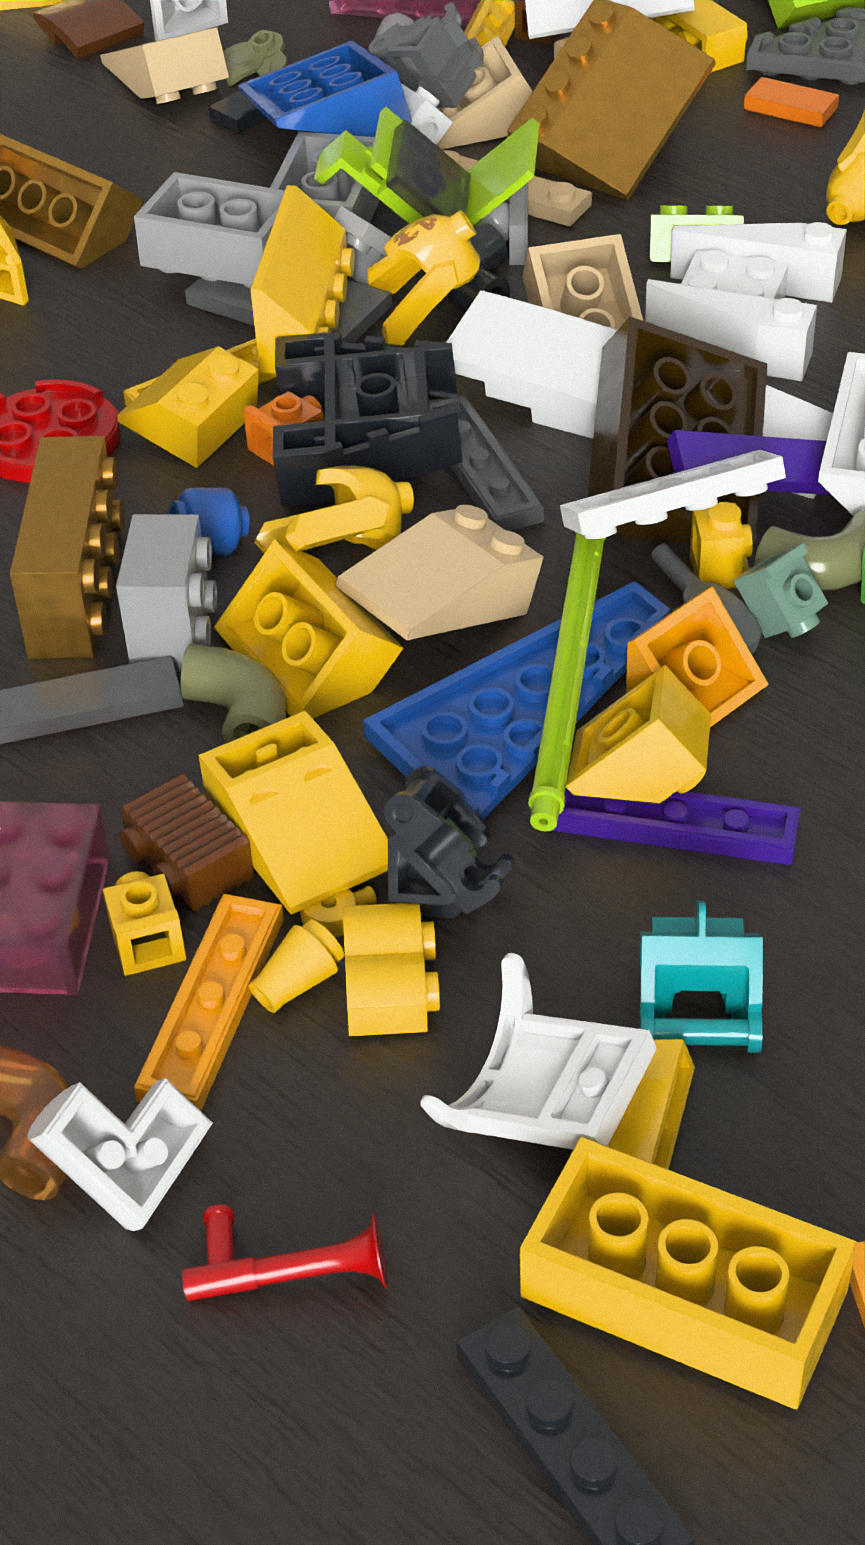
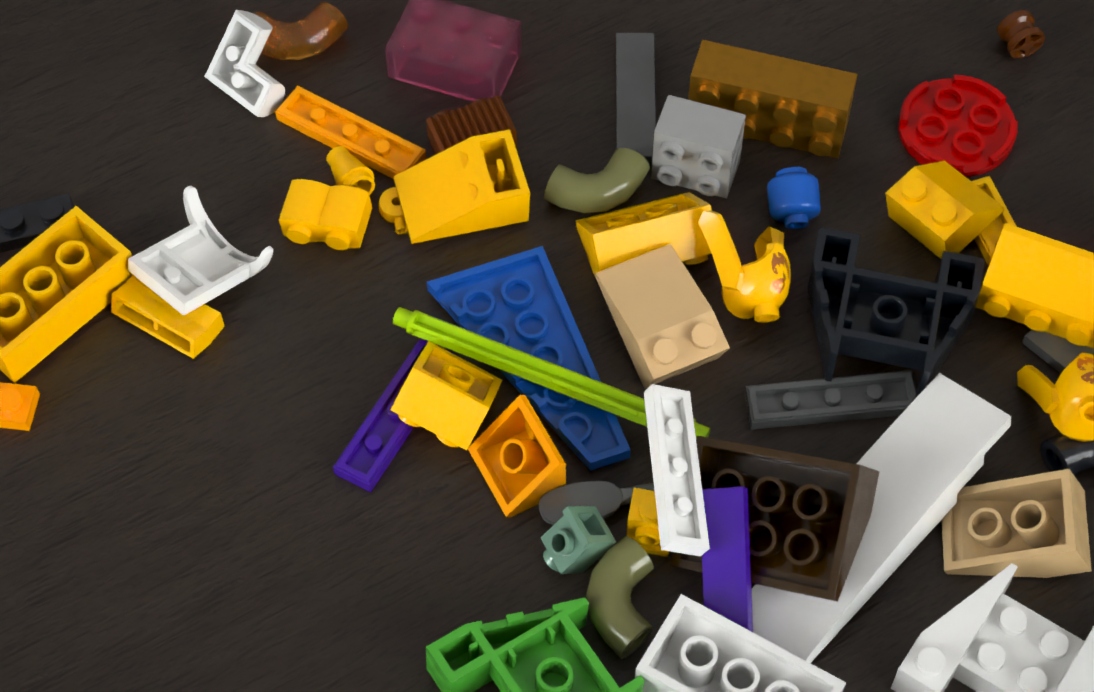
camera: 105 degrees right, 15 degrees up
(140, 908) = (414, 103): yellow brick -> none
(228, 1276) = (136, 166): red piece -> none
(280, 411) = (903, 259): orange brick -> none
(436, 846) = (384, 253): black piece -> none
(702, 957) = (247, 372): teal piece -> none

